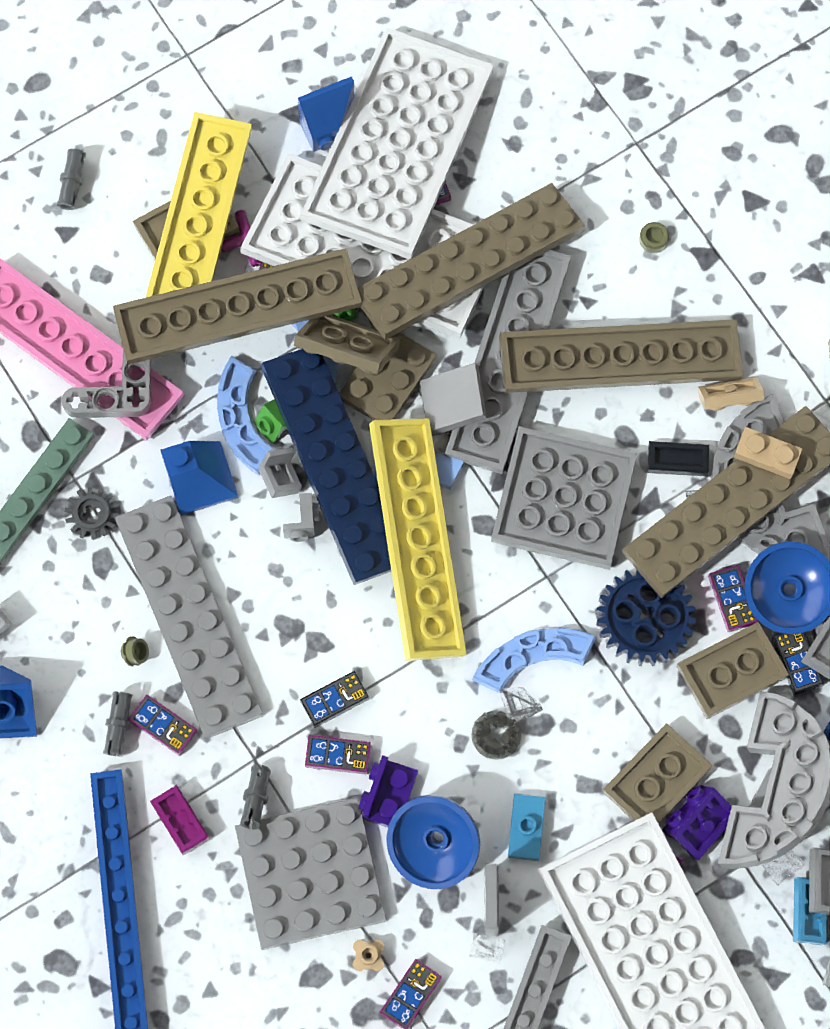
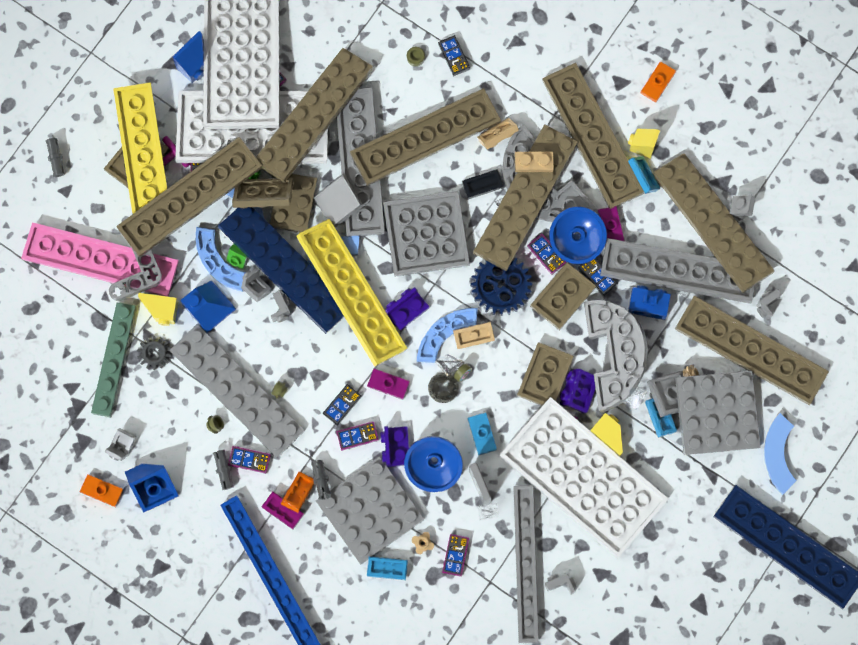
camera: 20 degrees left, 5 degrees up
(129, 451) = (161, 308): none -> light yellow slope
(213, 802) = (298, 492): none -> orange plate
(251, 639) = (279, 389): none -> olive plate
(298, 971) = (387, 568): none -> dark azure plate
(416, 696) = (388, 384): none -> magenta plate
(489, 595) = (406, 309): none -> dark purple bracket
(534, 723) = (462, 373): none -> olive tile
(573, 674) = (473, 335): none -> tan plate
(711, 257) = (454, 55): none -> tile
(720, 903) = (609, 432): none -> light yellow slope

